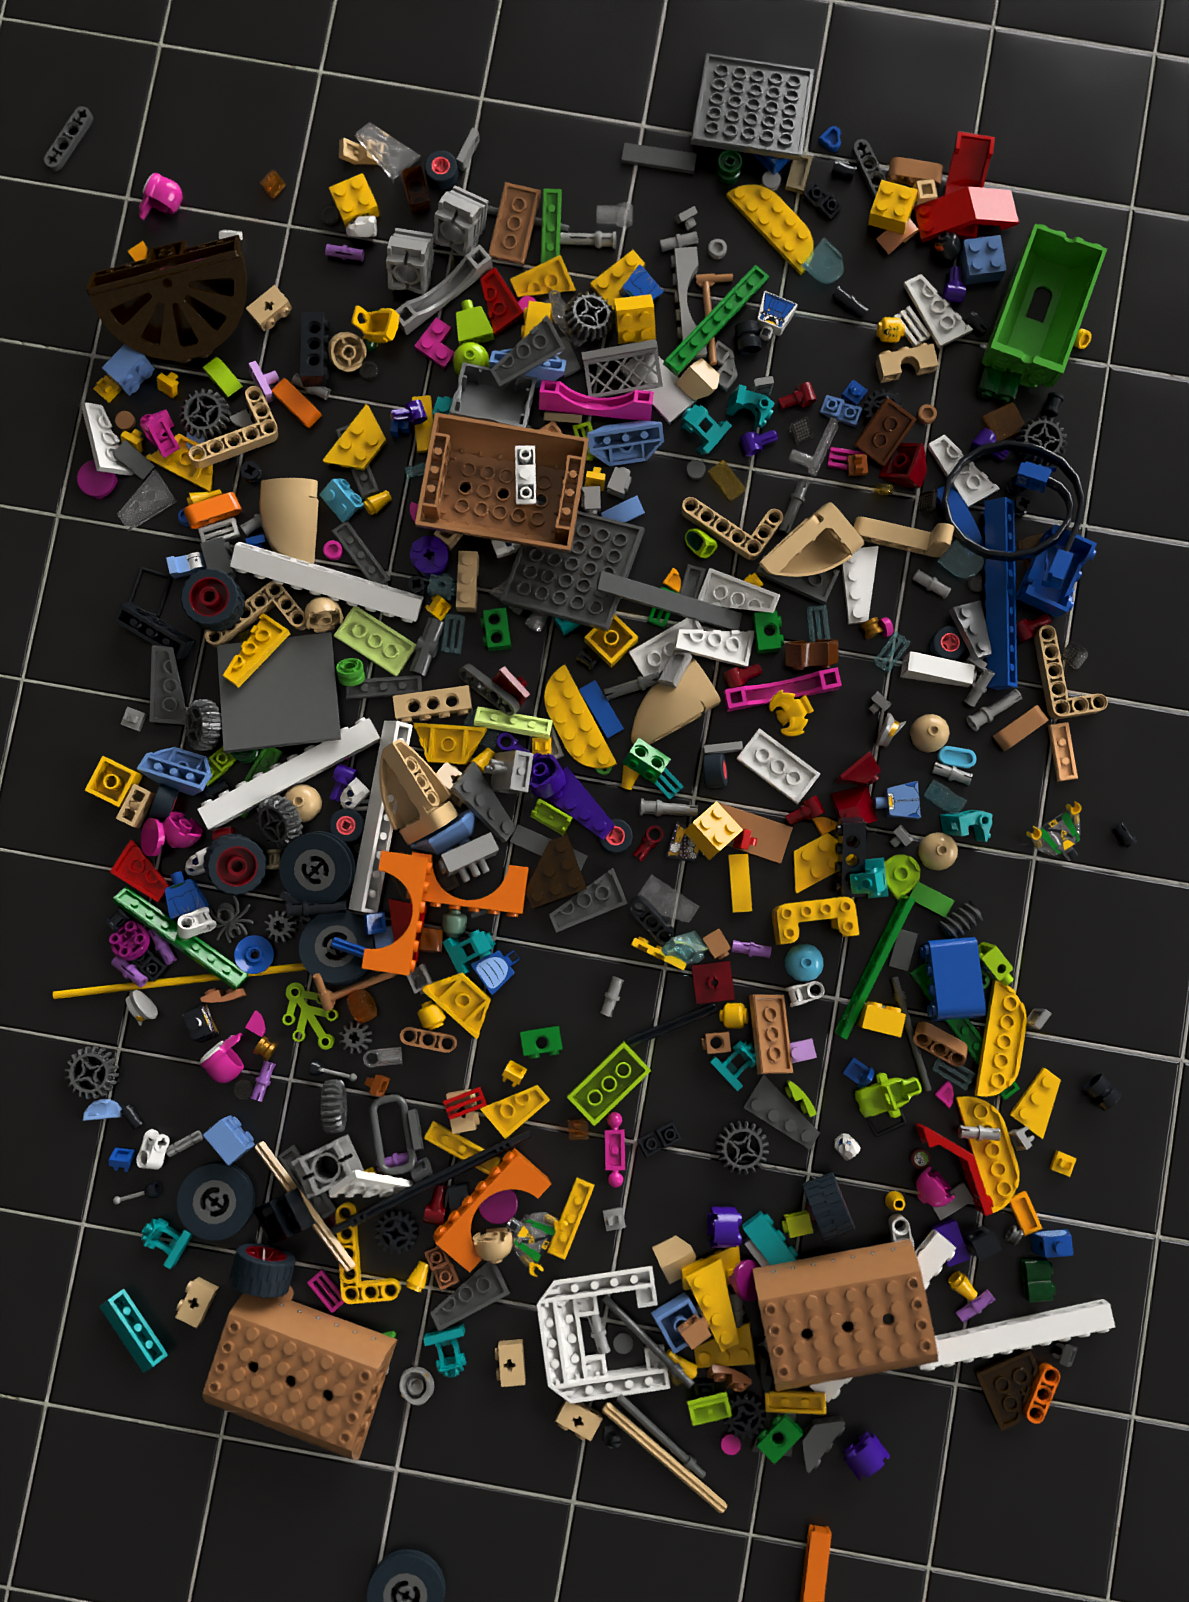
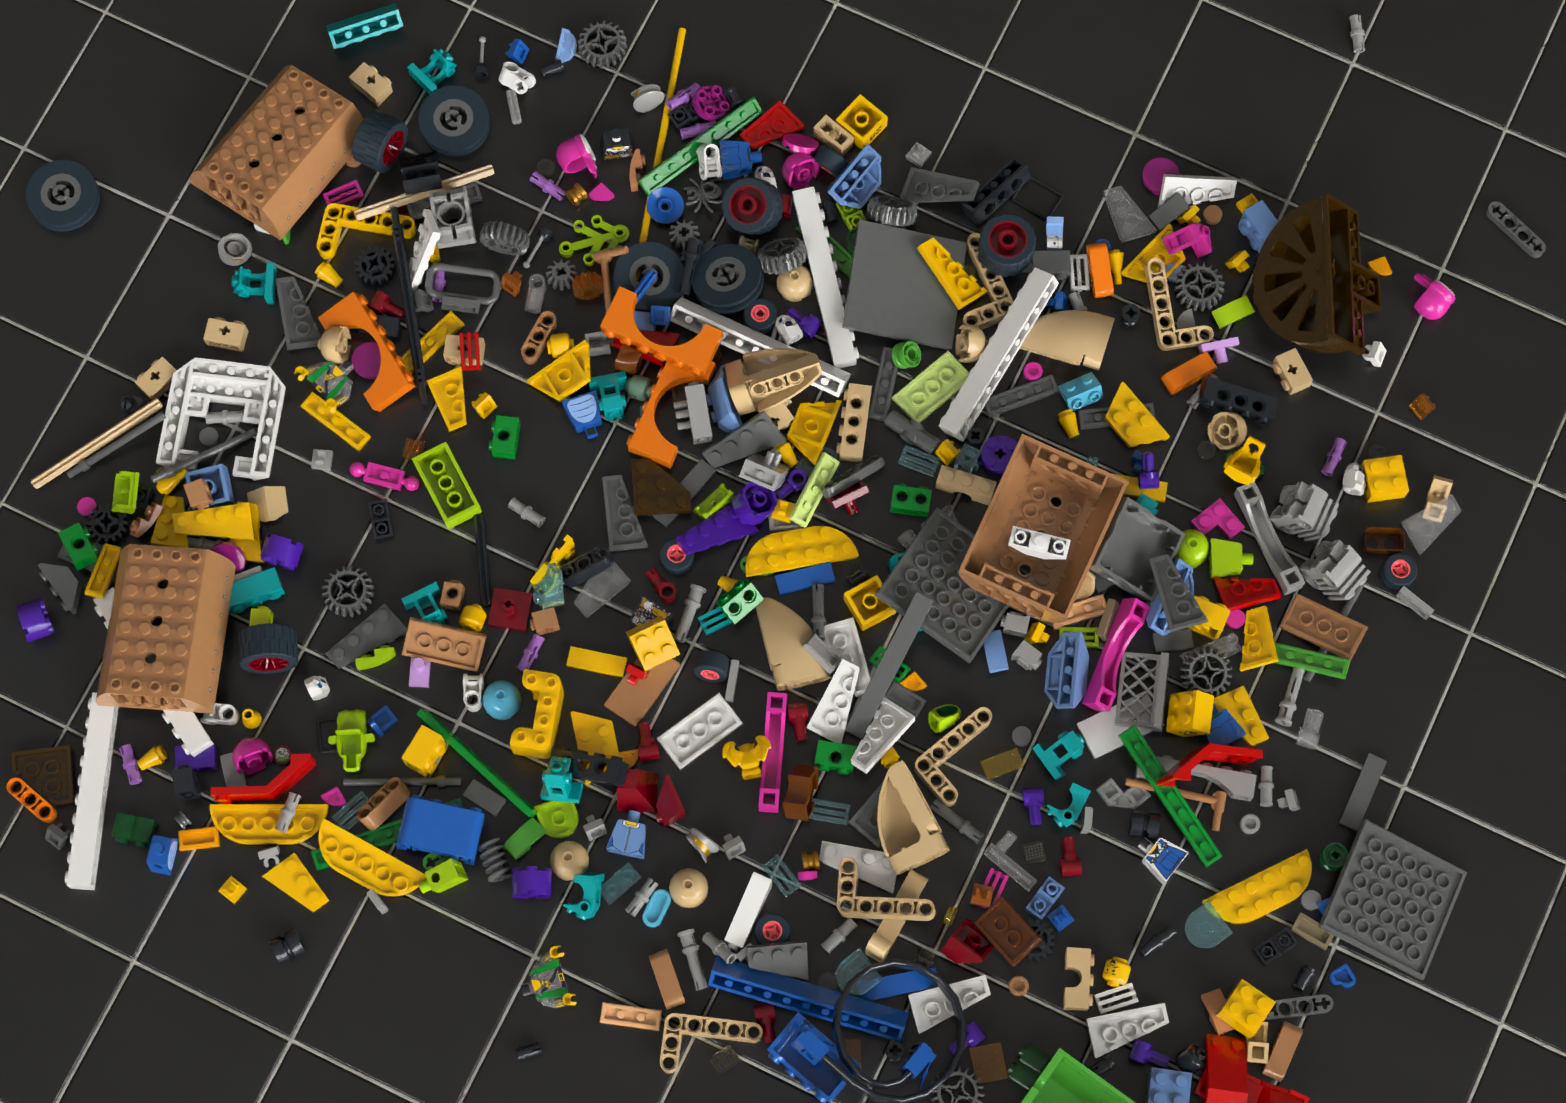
camera: 105 degrees right, 10 degrees down
(229, 1139) = (504, 143): medium blue brick -> none
(442, 1267) = (328, 298): nougat slope -> none
(681, 299) = (1209, 752): none -> red windscreen
(699, 380) = (1112, 763): tan slope -> none
(898, 553) = (876, 902): none -> tan beam
(975, 877) = (531, 882): none -> dark purple brick

